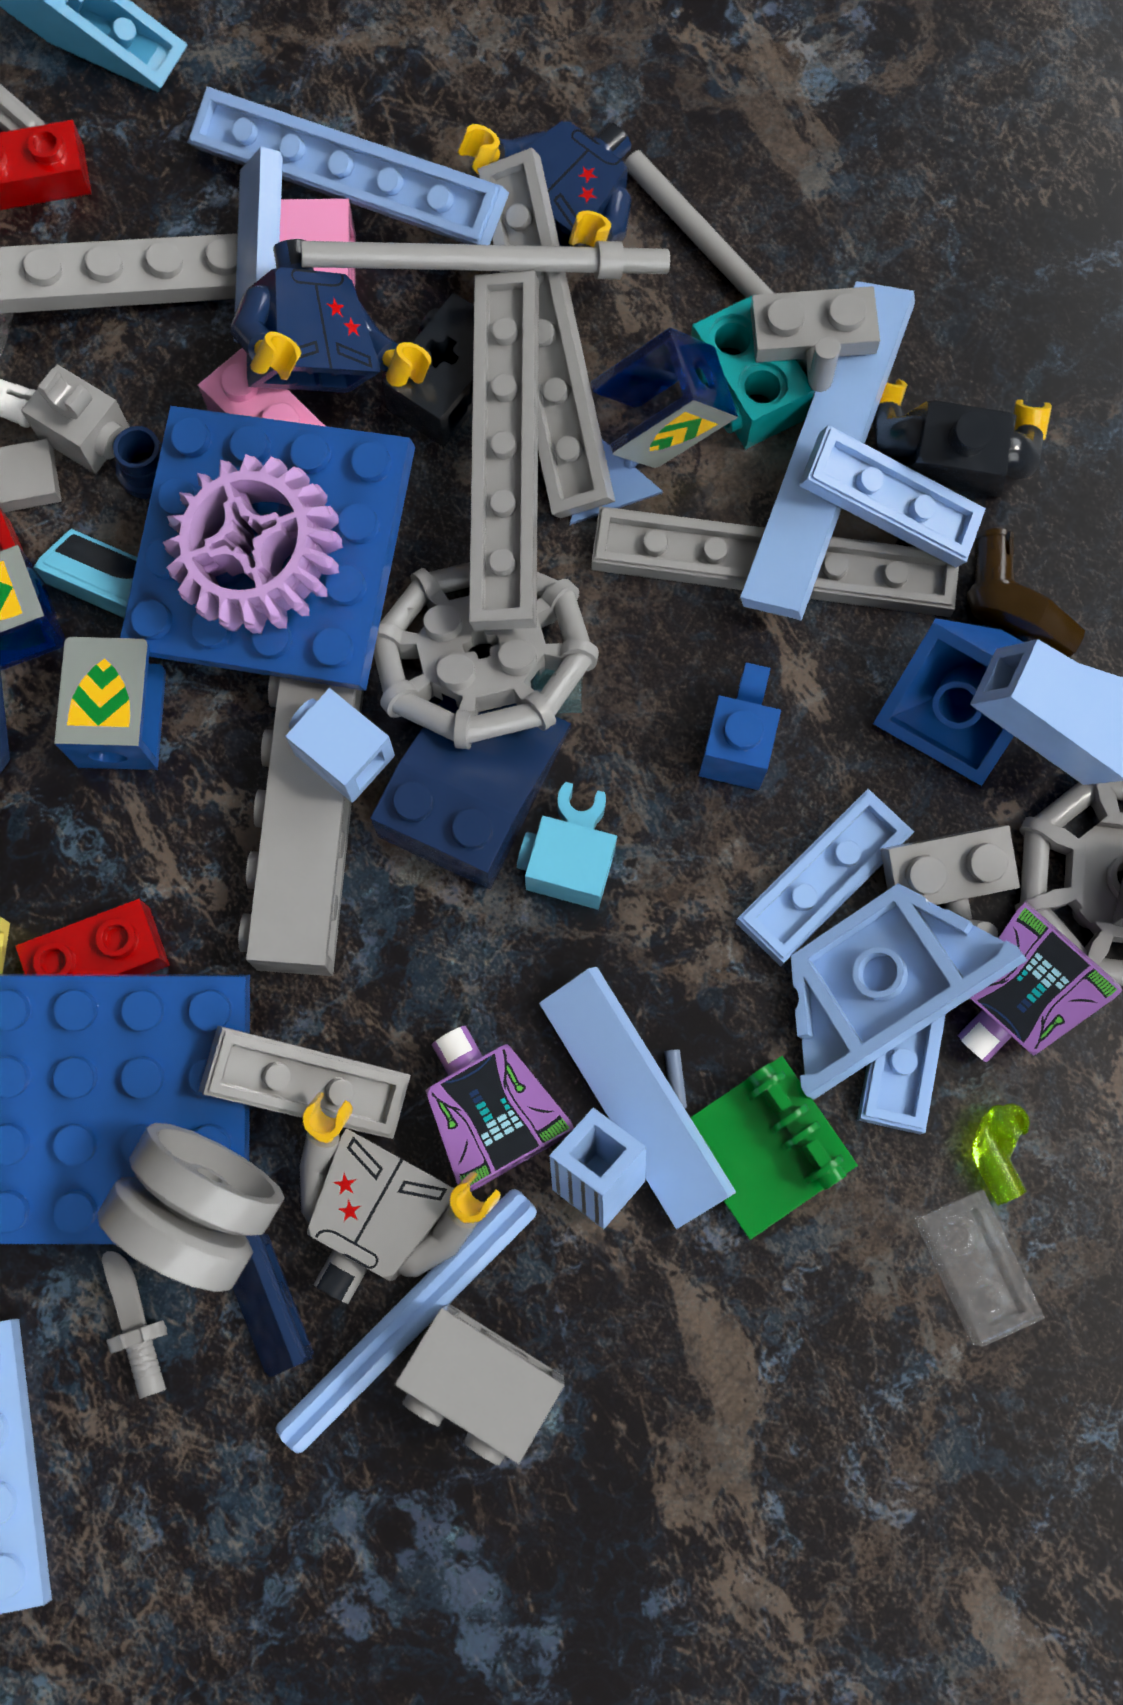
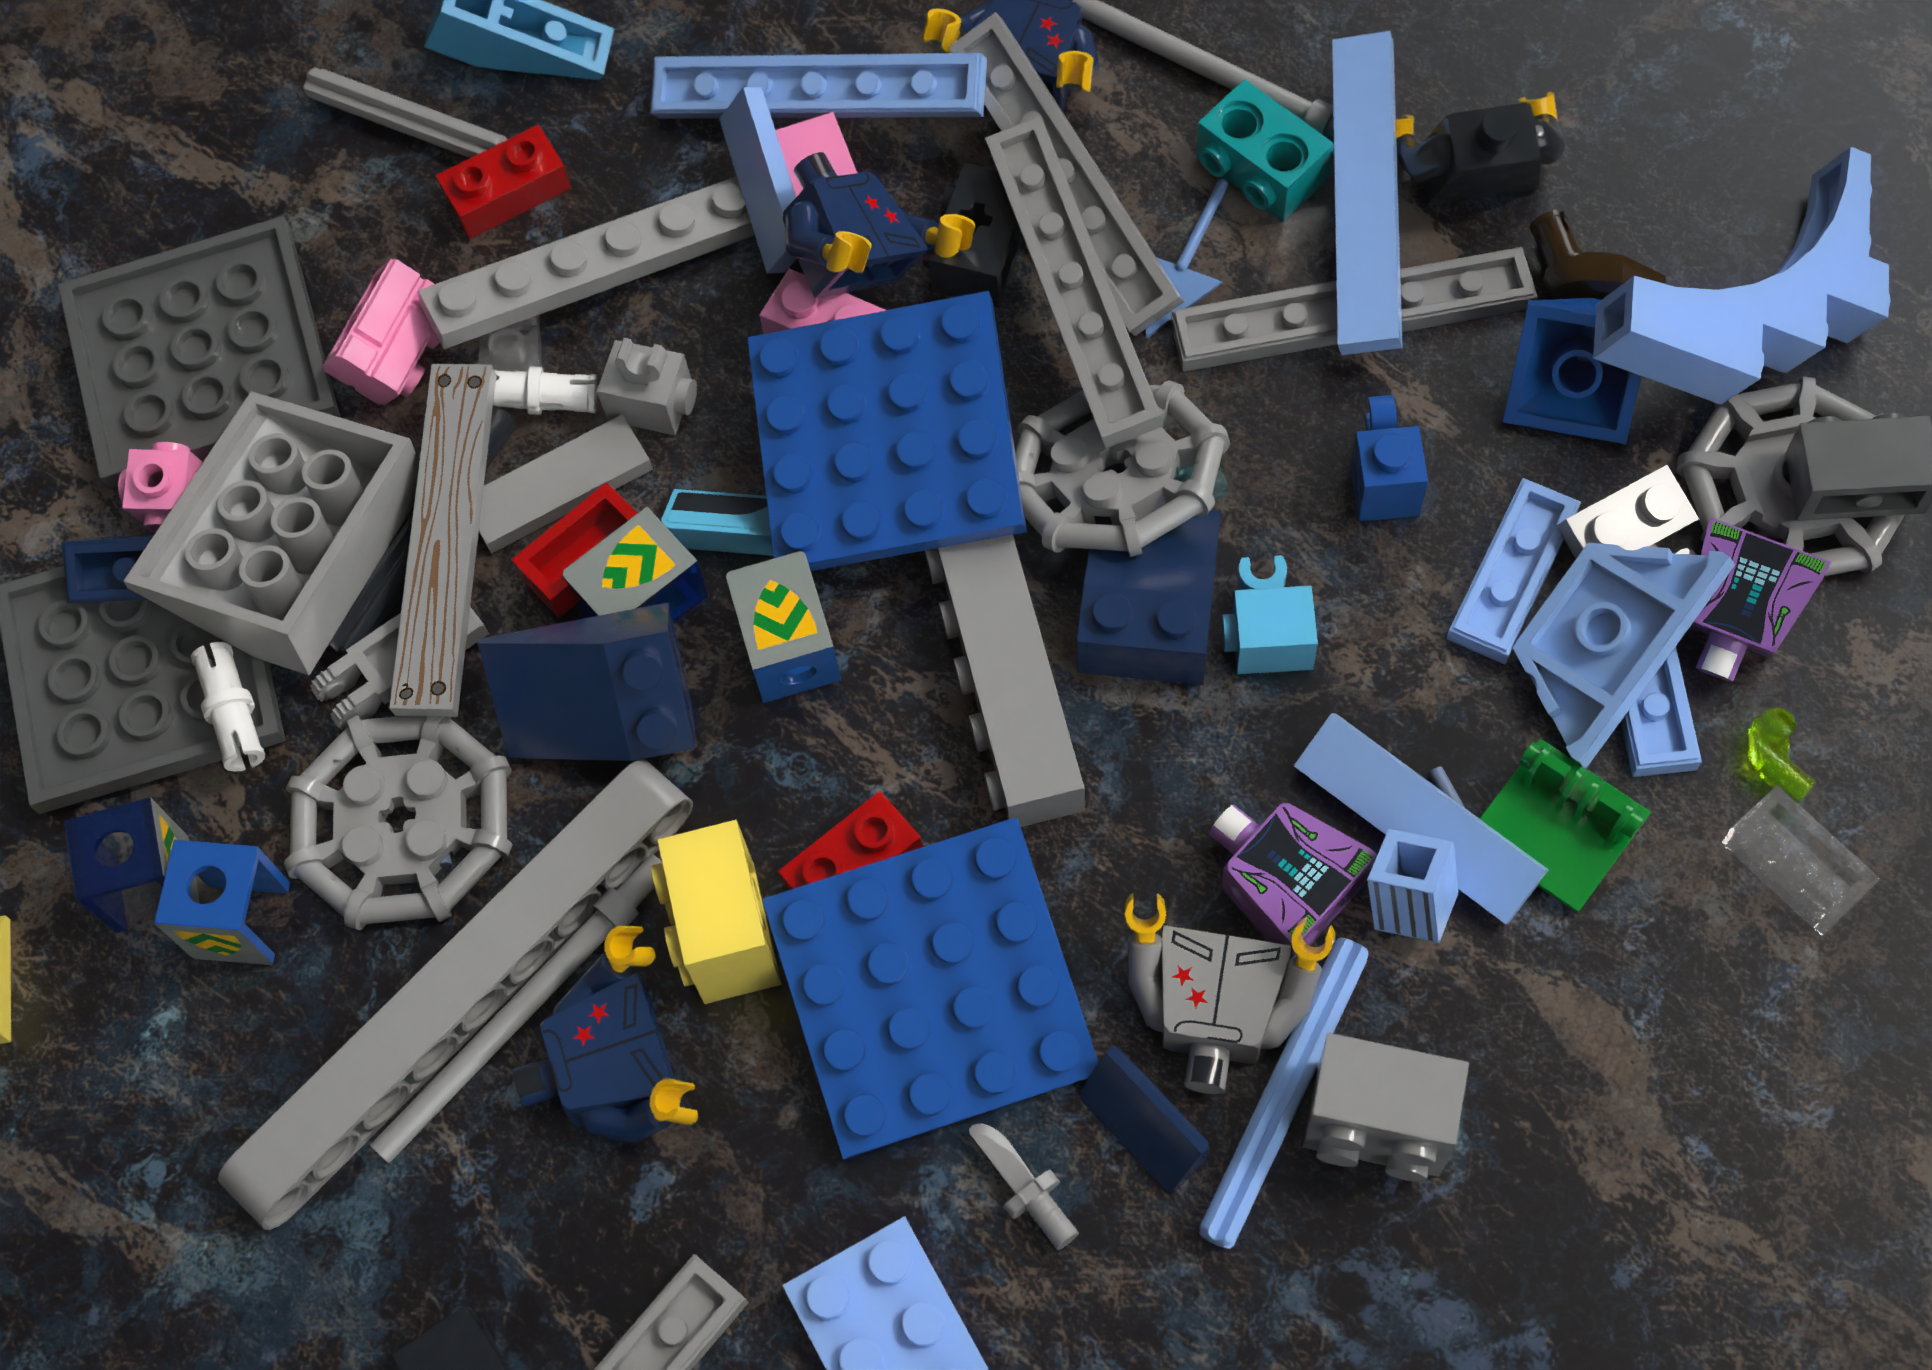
camera: 10 degrees left, 10 degrees down
(136, 478) = (724, 422): dark blue piece -> none
(189, 1207) = (1057, 1014): light grey wheel -> none
(207, 552) = (919, 389): lavender gear -> none
(289, 1076) = (1093, 897): light grey tile -> none
(339, 743) = (1024, 581): light blue brick -> none
(604, 260) = (1097, 89): light grey bar -> none
(685, 422) = (1221, 212): clear blue piece -> none
(815, 328) = (1314, 88): light grey plate -> none
(892, 496) = (1443, 212): light blue tile -> none

